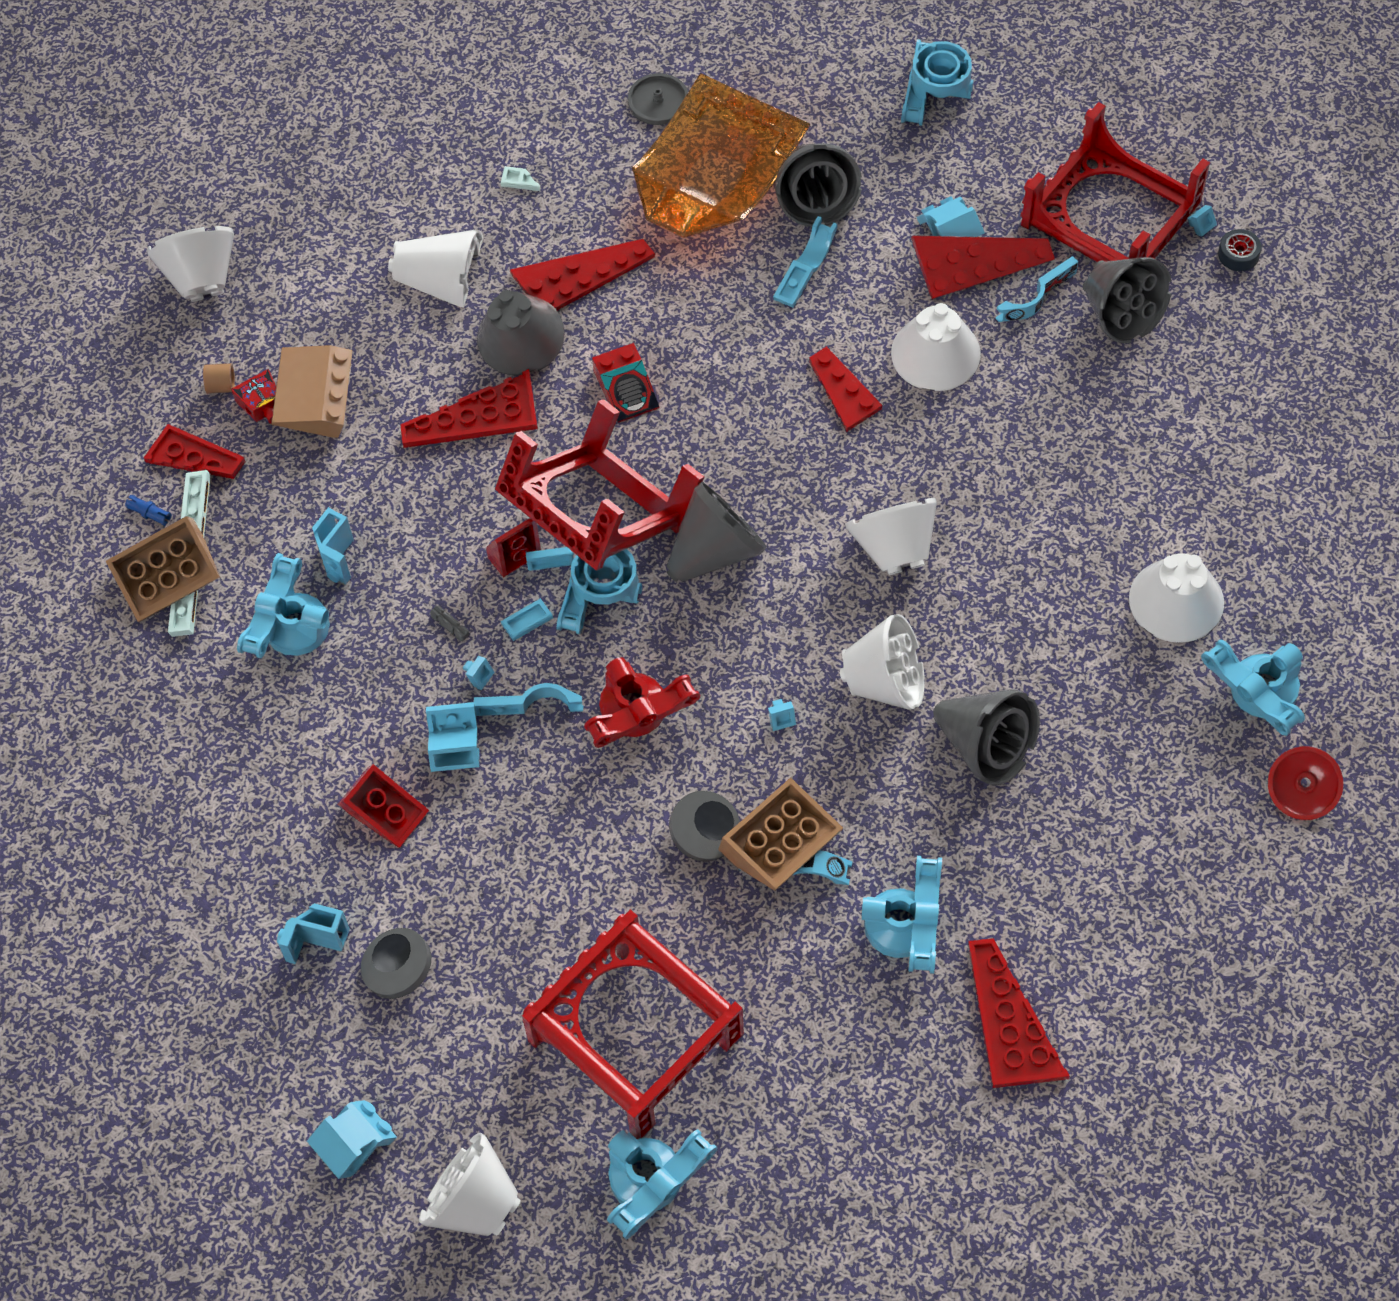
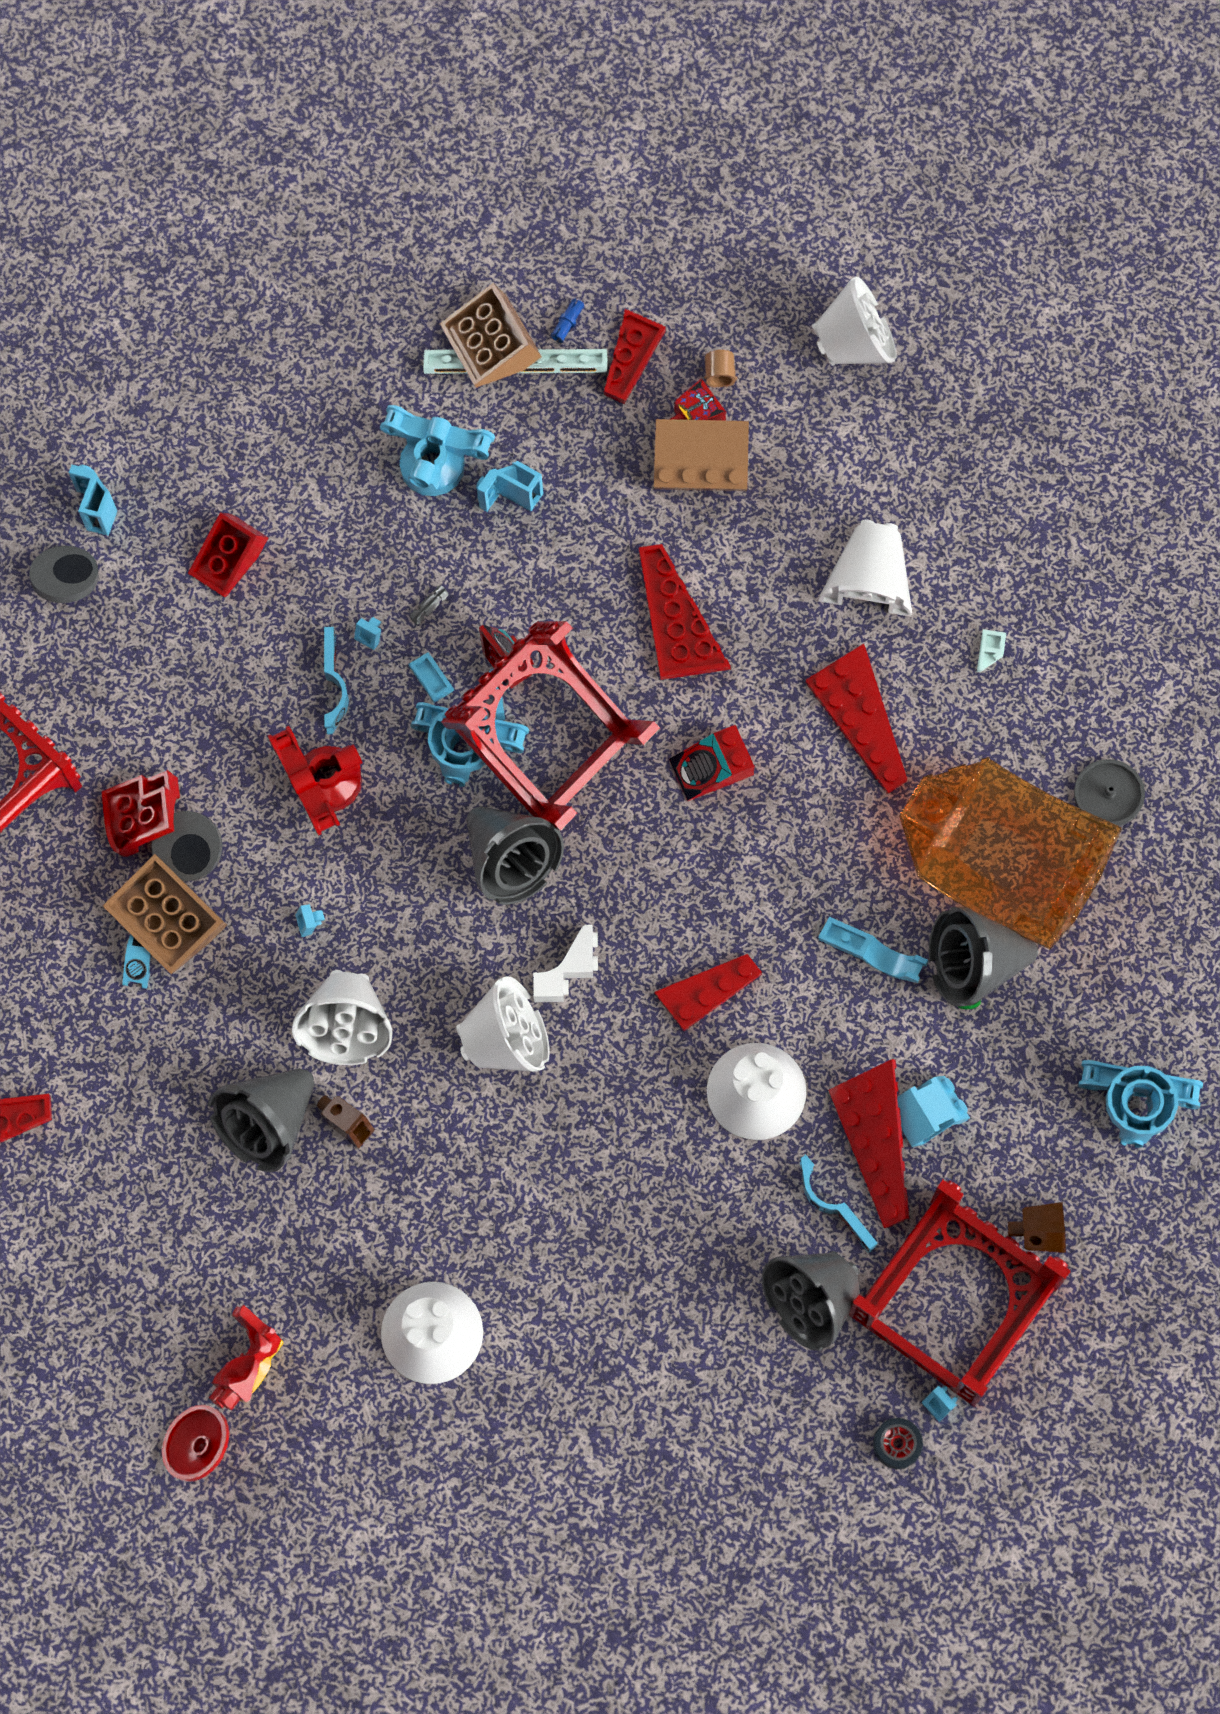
camera: 90 degrees right, 10 degrees up
(452, 737) = (292, 611): medium azure piece -> none
(520, 333) = (776, 656): dark grey cone -> none
(669, 868) = (139, 811): none -> red slope
(819, 486) = (577, 963): none -> white arch
(907, 938) = (93, 1036): medium azure piece -> none
(983, 669) = (345, 1119): none -> reddish brown torso
(1050, 143) = (1041, 1228): none -> reddish brown torso
(1243, 751) = (245, 1373): none -> red hips
(1249, 689) = (316, 1385): medium azure piece -> none

